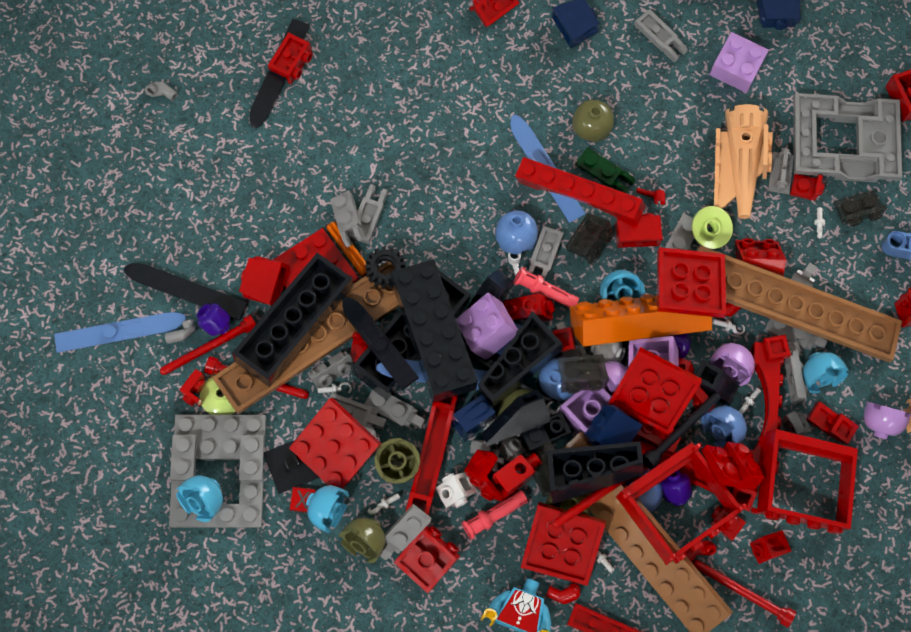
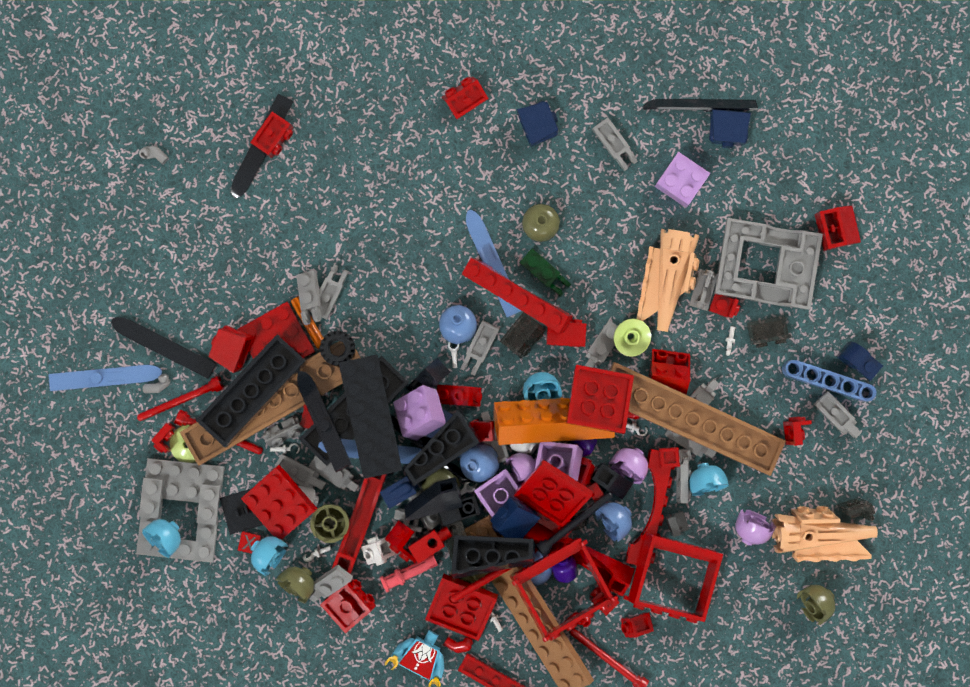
camera: 10 degrees right, 15 degrees up
(213, 319) = (184, 378): dark purple head -> none
(537, 284) = (468, 376): coral pin -> none
(582, 373) = (494, 467): clear smoke bracket -> none
(659, 195) = (589, 301): red hand -> none
(734, 465) = (613, 560): red plate -> none
(749, 400) = (639, 497): white hand -> none
(833, 424) = (708, 524): red slope -> none

